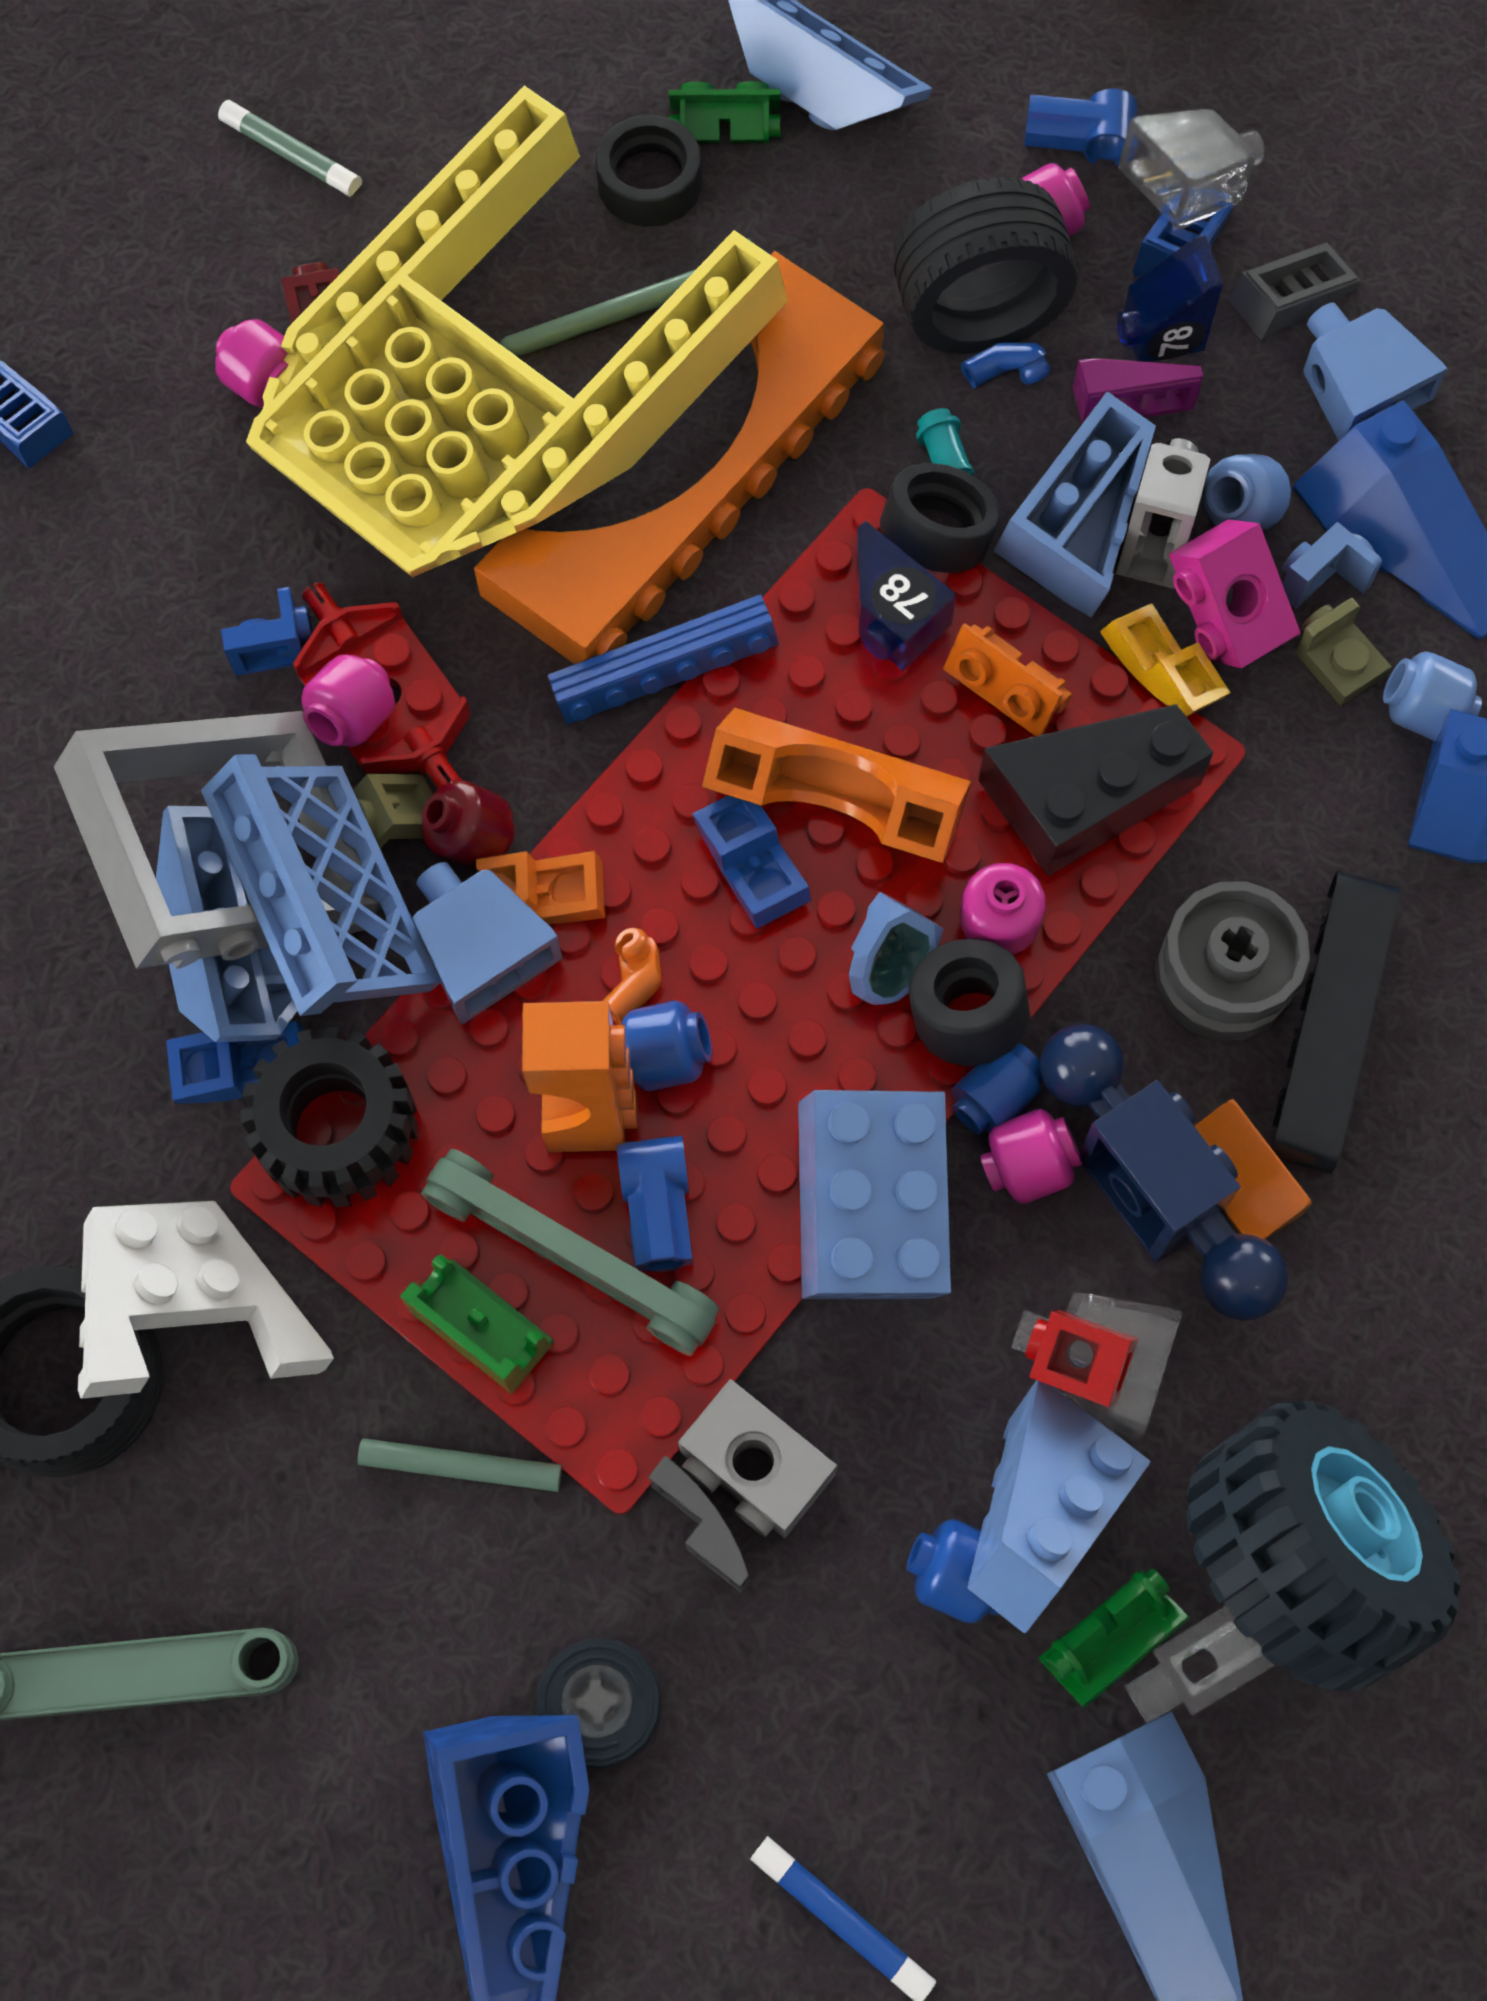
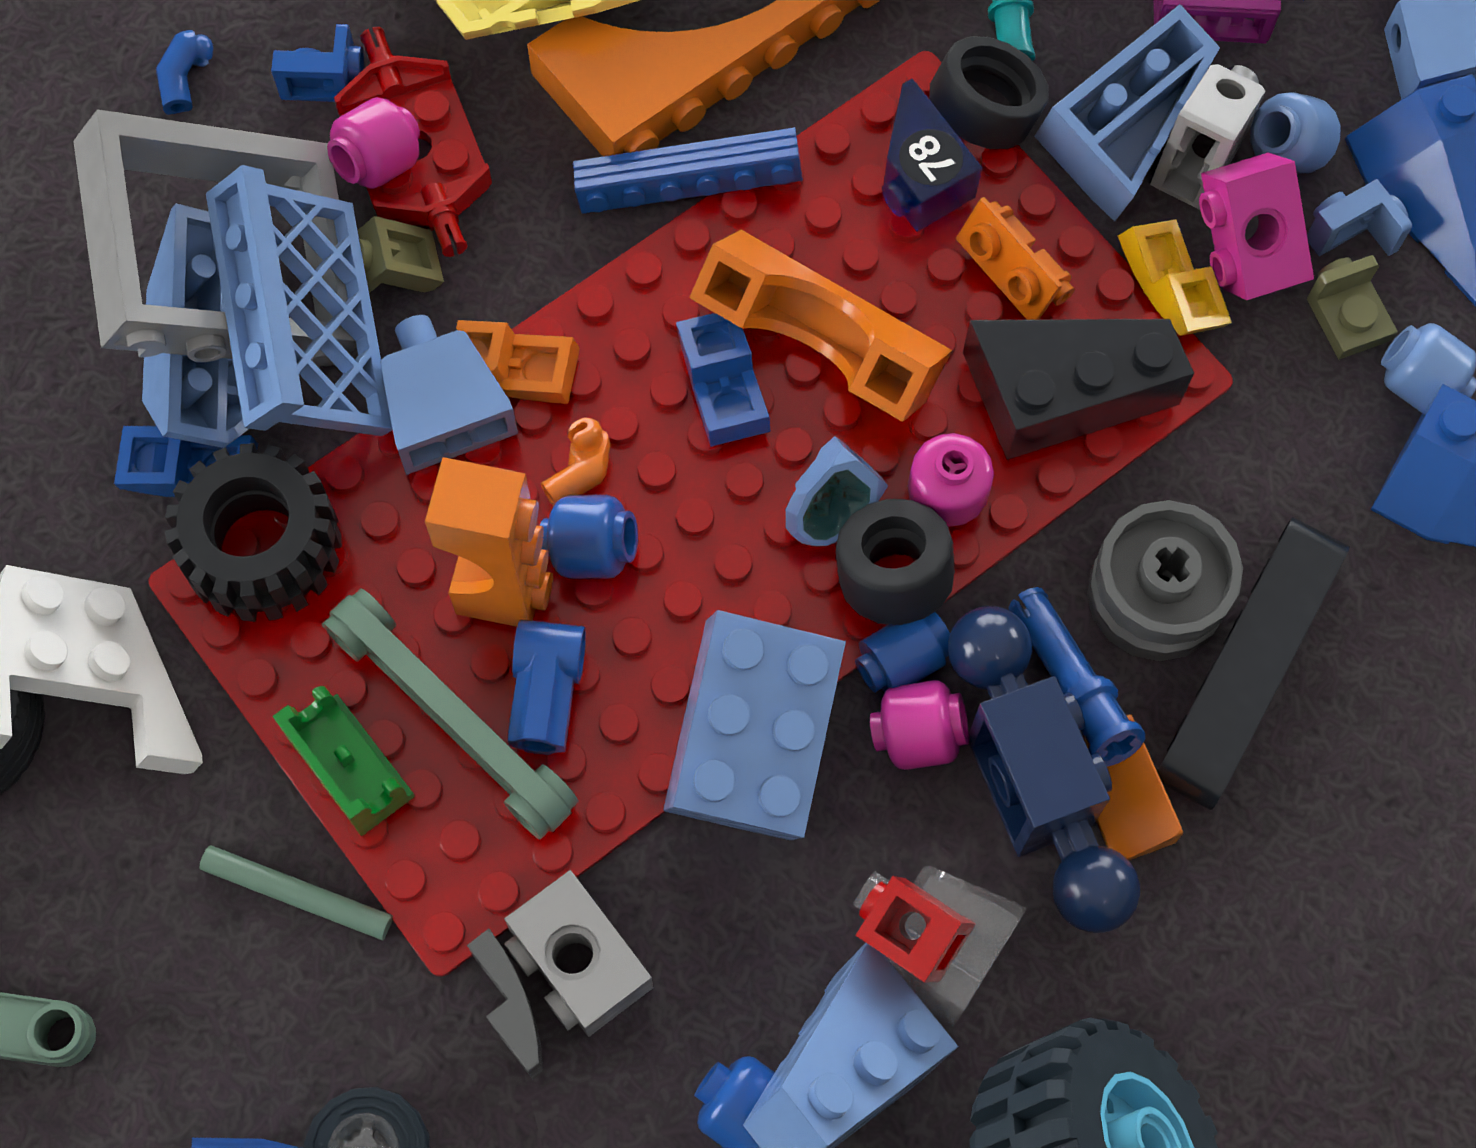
camera: 10 degrees right, 0 degrees up
(119, 668) = (175, 65): none -> blue arm
(467, 823) = (458, 284): dark red head -> none
(1215, 1115) = (1105, 722): none -> blue pin

